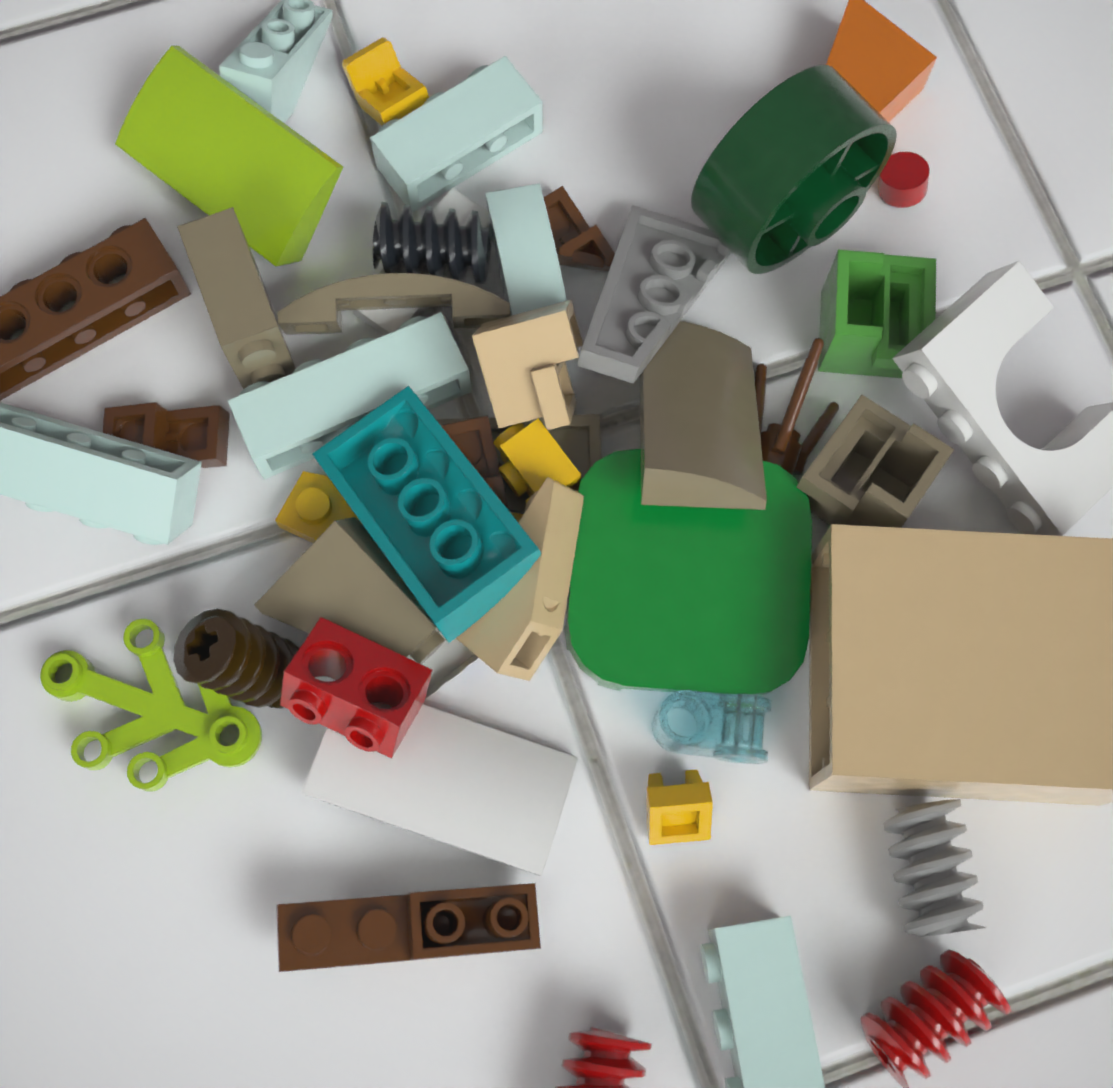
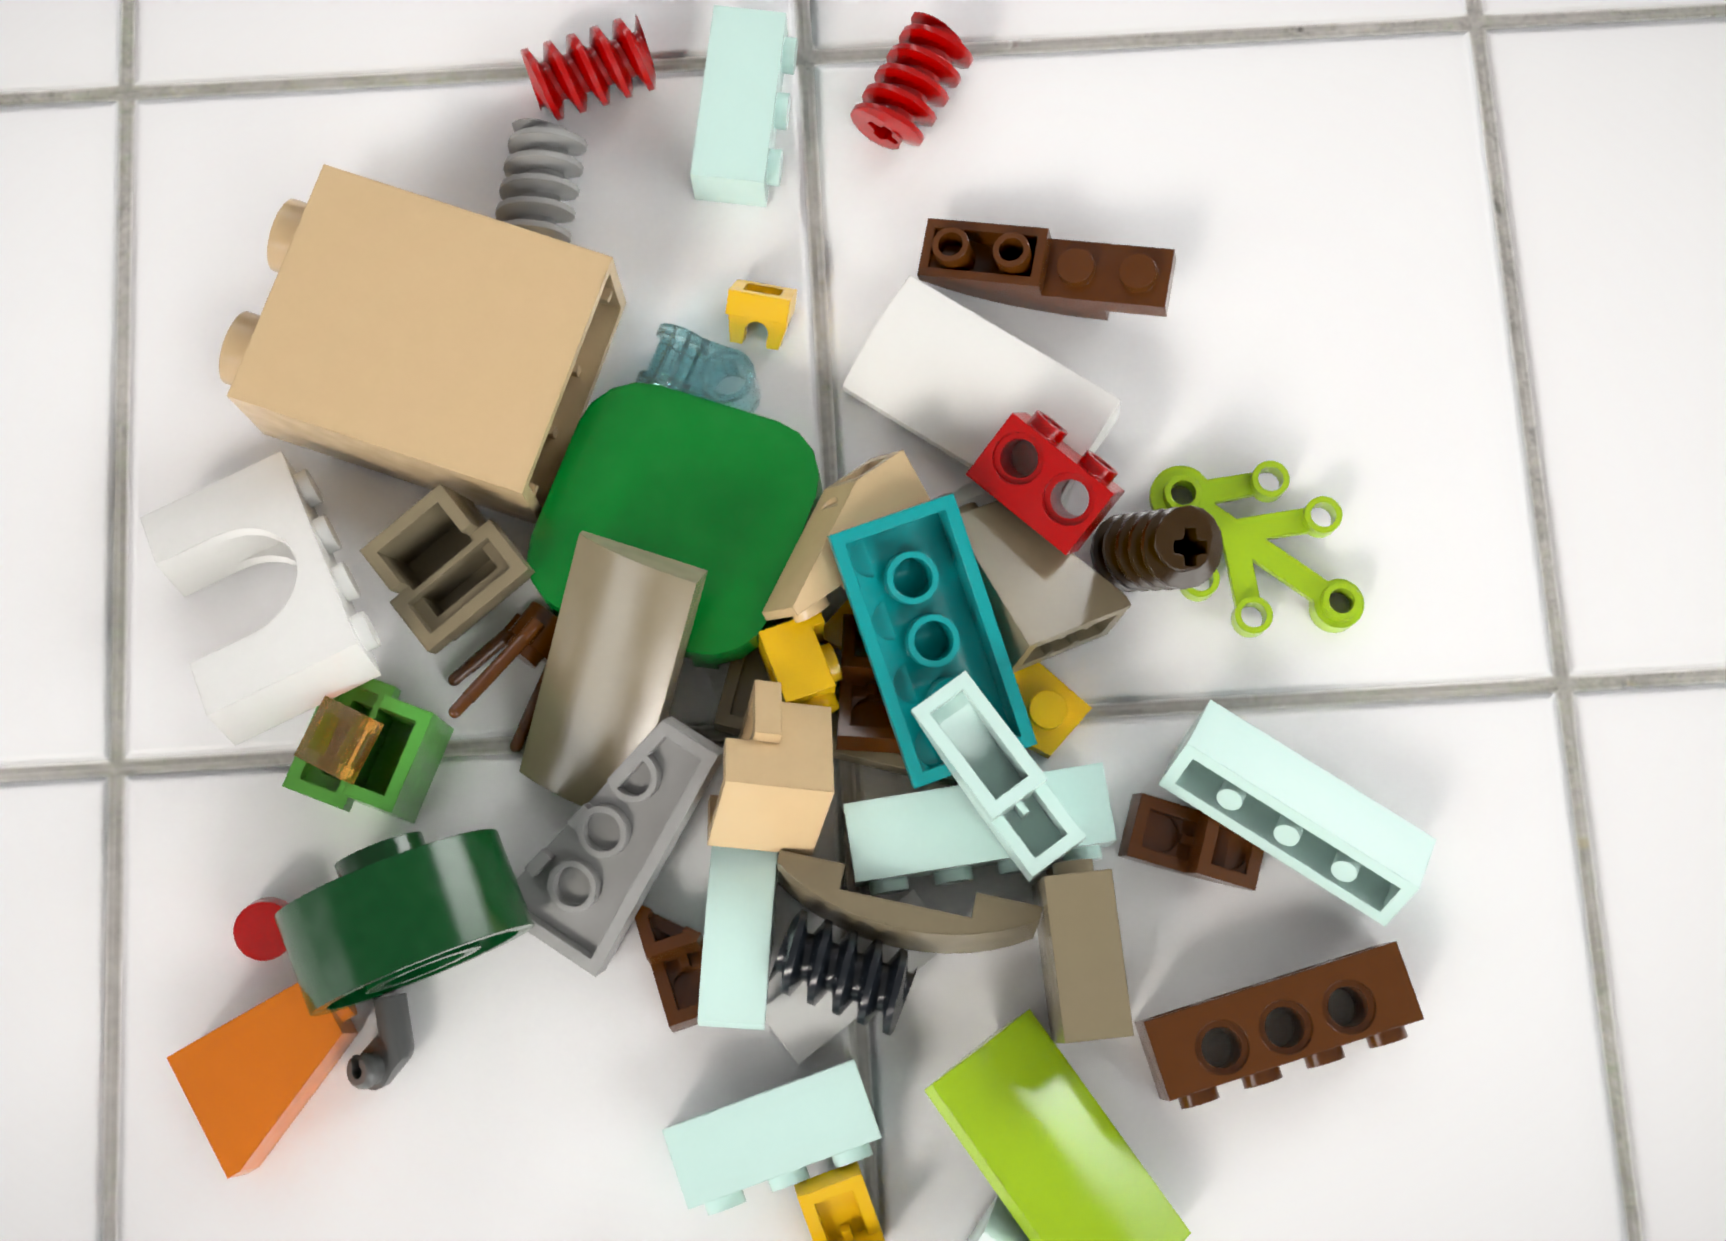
camera: 165 degrees left, 5 degrees up
(335, 403) = (998, 776): none -> light aqua slope
(904, 292) = (339, 740): none -> clear orange tile

